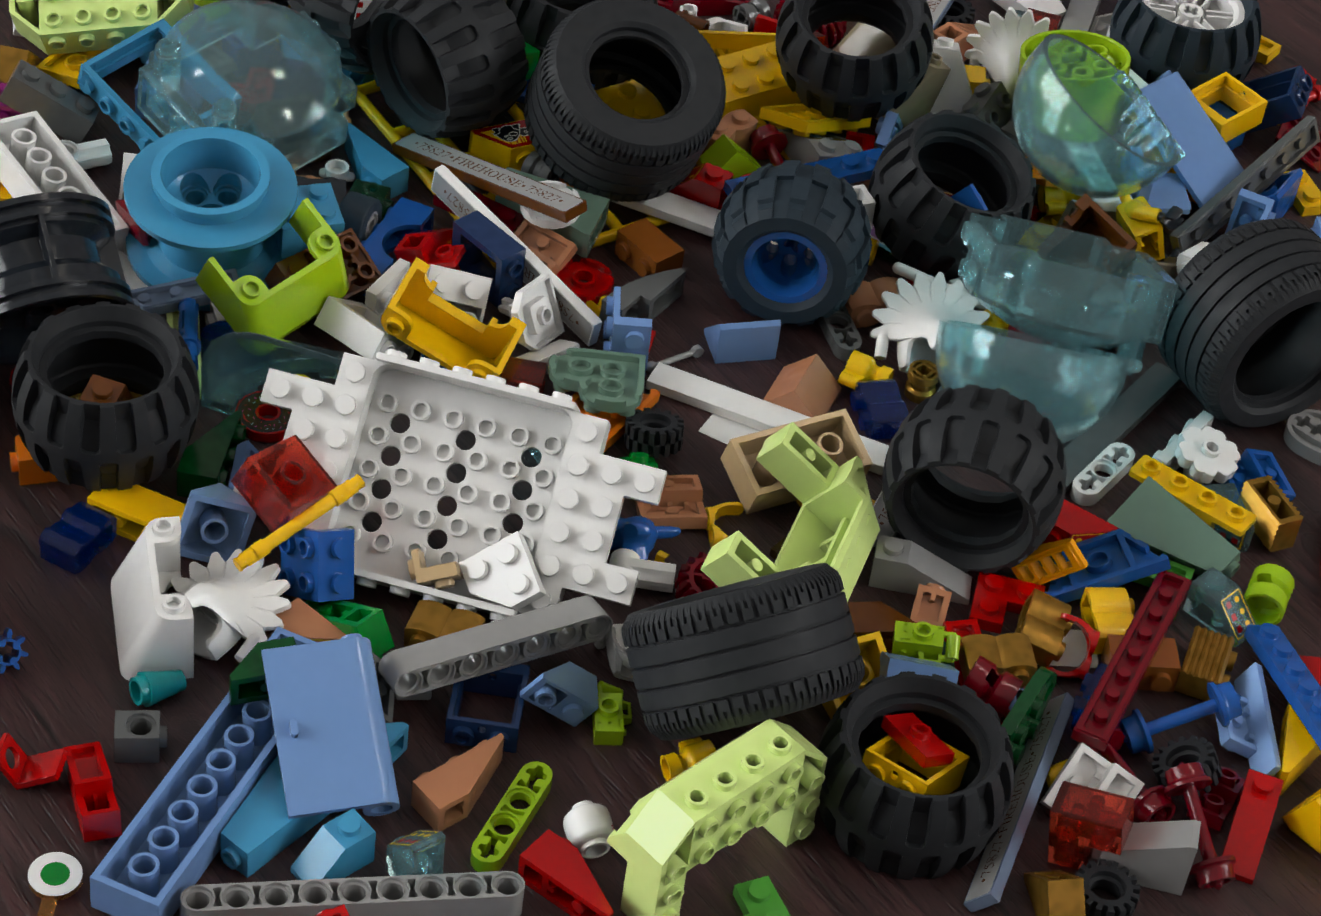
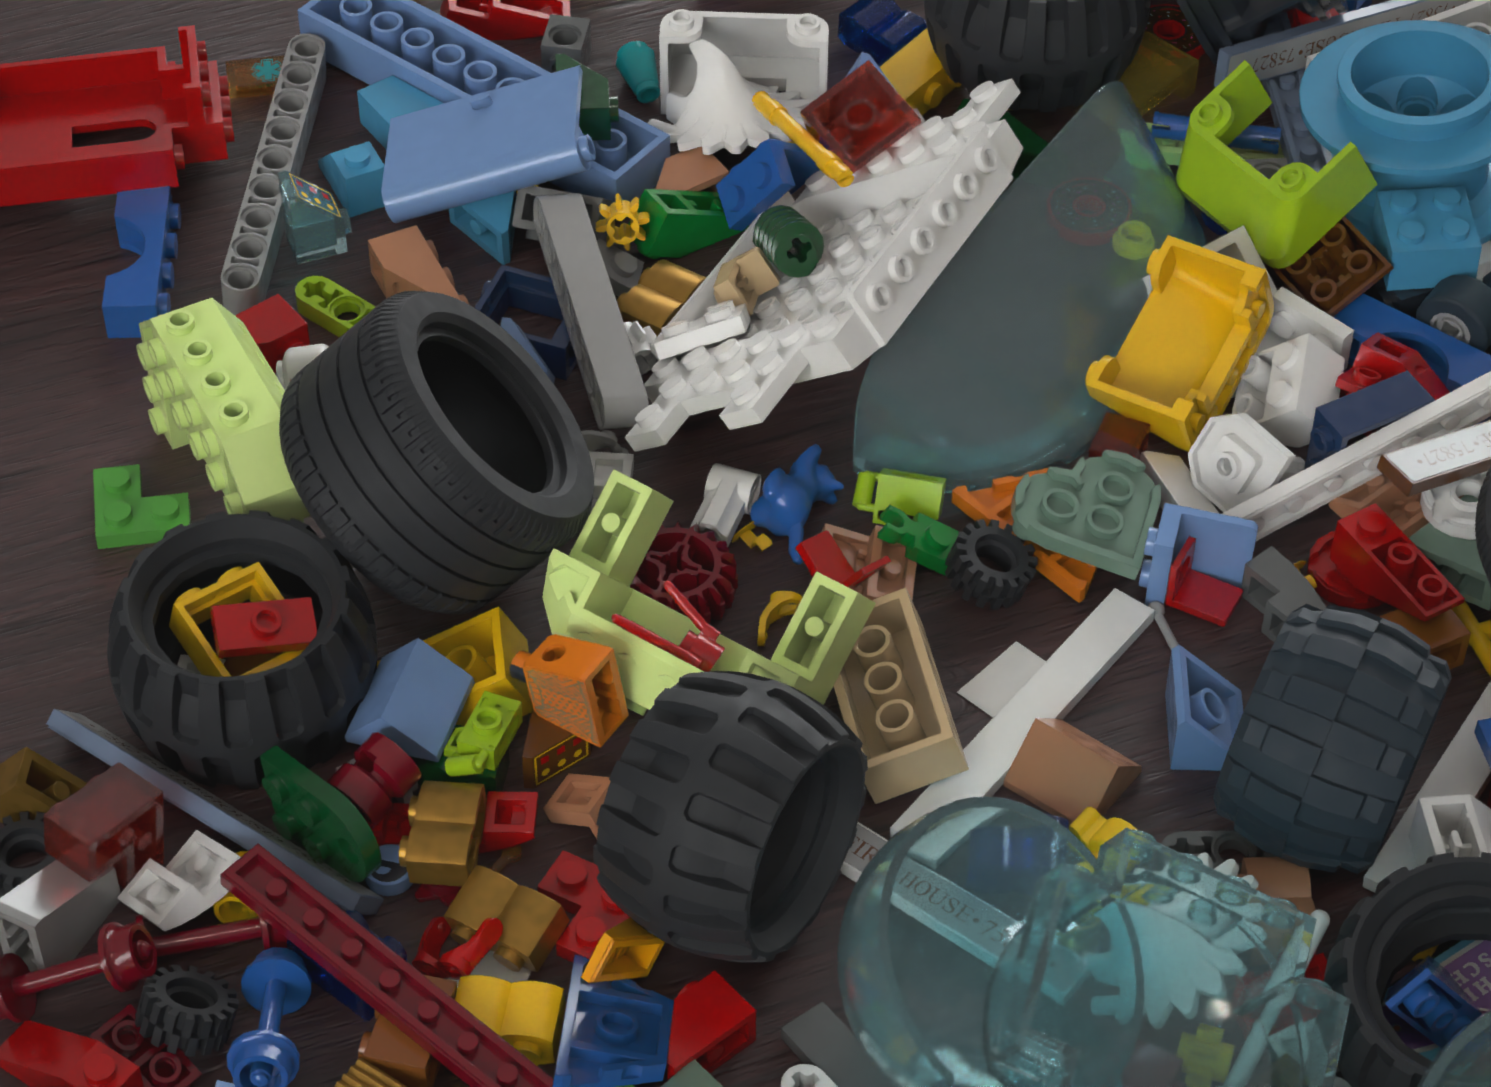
camera: 110 degrees right, 5 degrees up
(387, 638) = (625, 233): none -> yellow gear
(396, 536) = (788, 240): none -> dark green piece
(606, 246) = (1390, 566): none -> red slope
(695, 499) = (824, 556): none -> red bracket
(818, 539) = (694, 649): none -> red plant
(875, 600) = (574, 686): none -> orange torso

